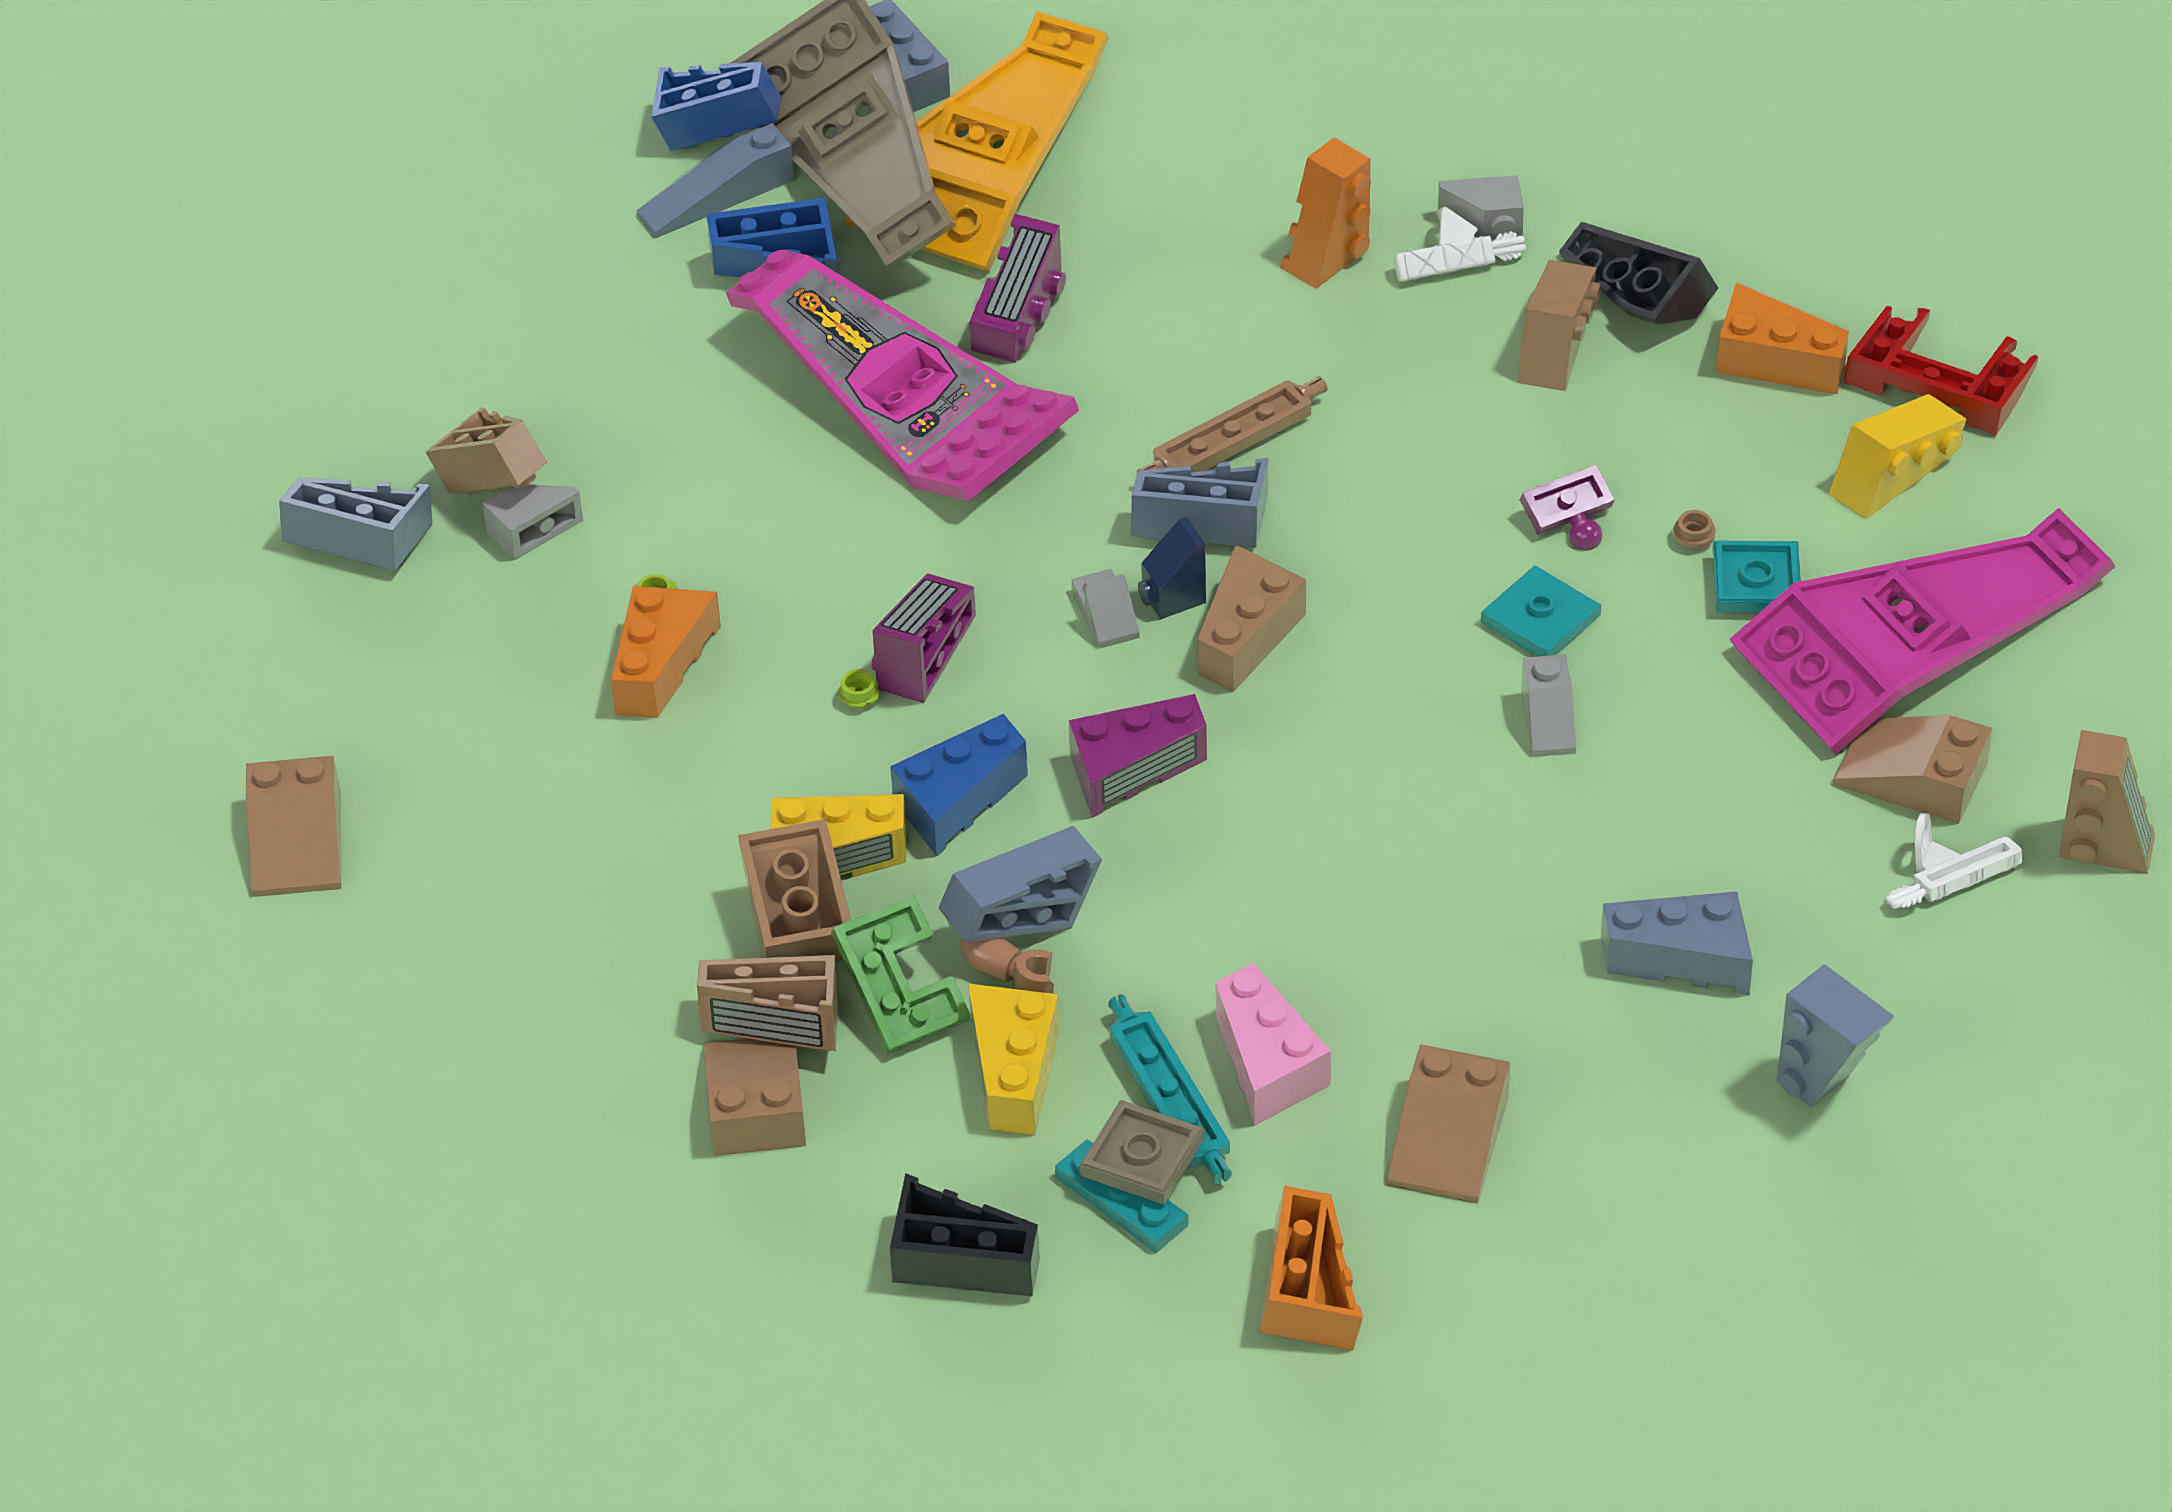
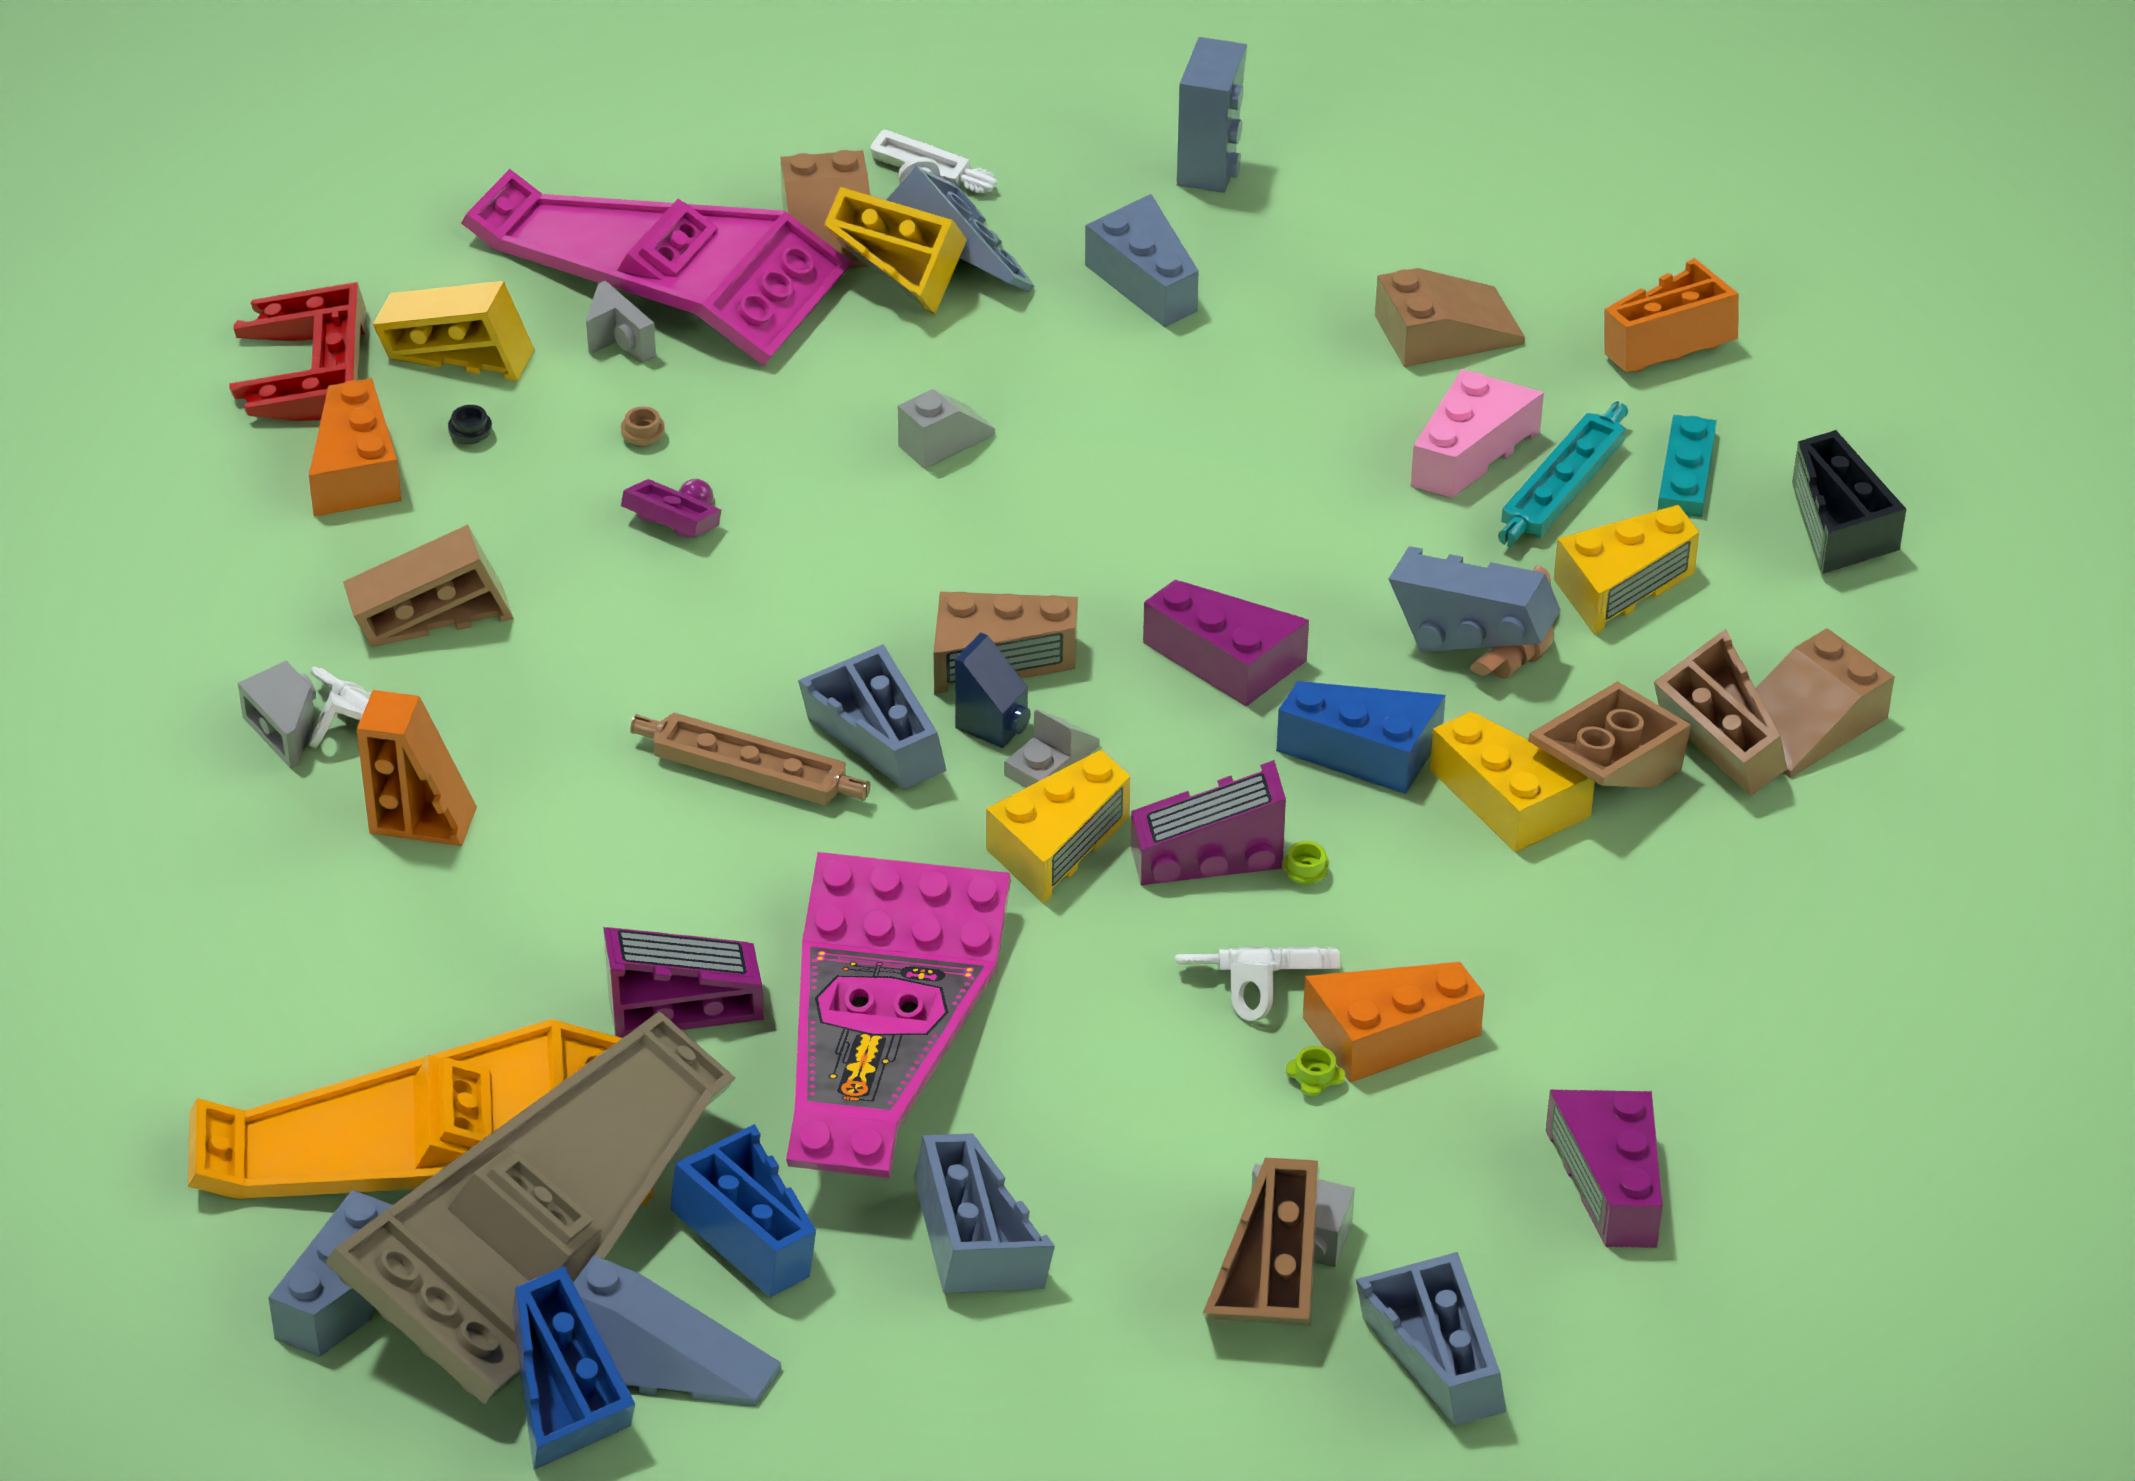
camera: 125 degrees left, 5 degrees down
(293, 825) = (1844, 1172): medium nougat slope -> none
(418, 693) = (1613, 1159): none -> magenta wedge
(670, 344) = (973, 1221): none -> sand blue wedge
(778, 609) = (1257, 965): none -> white piece
(896, 1011) = (1620, 652): bright green plate -> none
(1008, 558) = (1058, 821): none -> yellow wedge
(1142, 1152) = (1653, 442): dark tan plate -> none
(1540, 613) = (823, 482): teal plate -> none
(1642, 276) = (329, 545): black wedge -> none
(1753, 573) = (674, 370): teal plate -> none
(1774, 430) = (469, 424): none -> black plate
(1807, 756) = (899, 243): none -> yellow wedge
(1829, 838) = (943, 198): none -> sand blue wedge
(1850, 553) = (618, 320): none -> light grey slope
(2105, 808) = (825, 74): medium nougat wedge -> none

